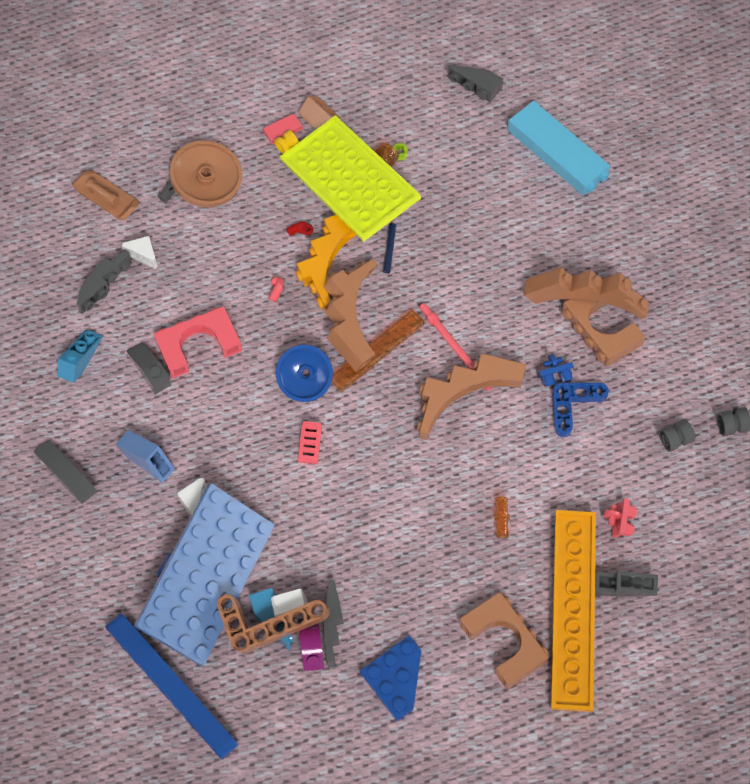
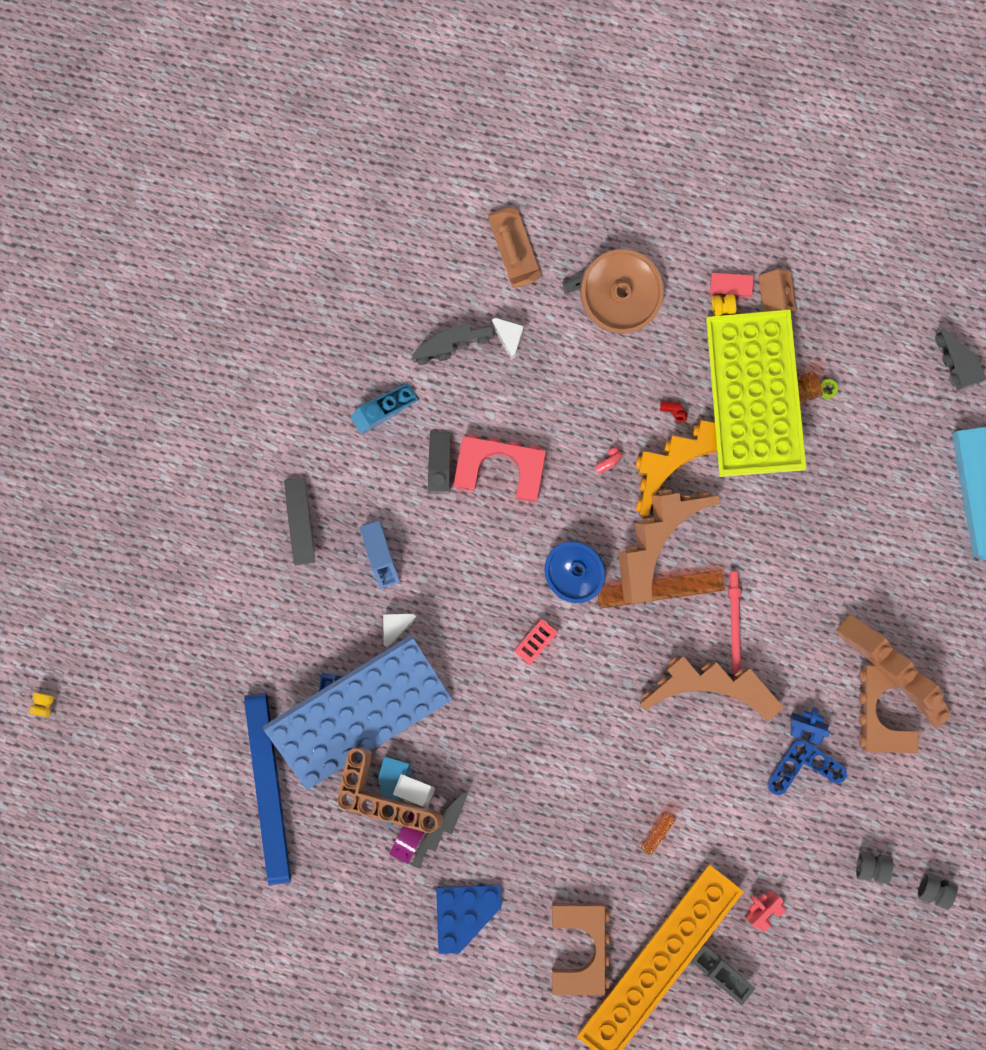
camera: 35 degrees right, 20 degrees up
(389, 248) = (741, 493): dark blue bar -> none

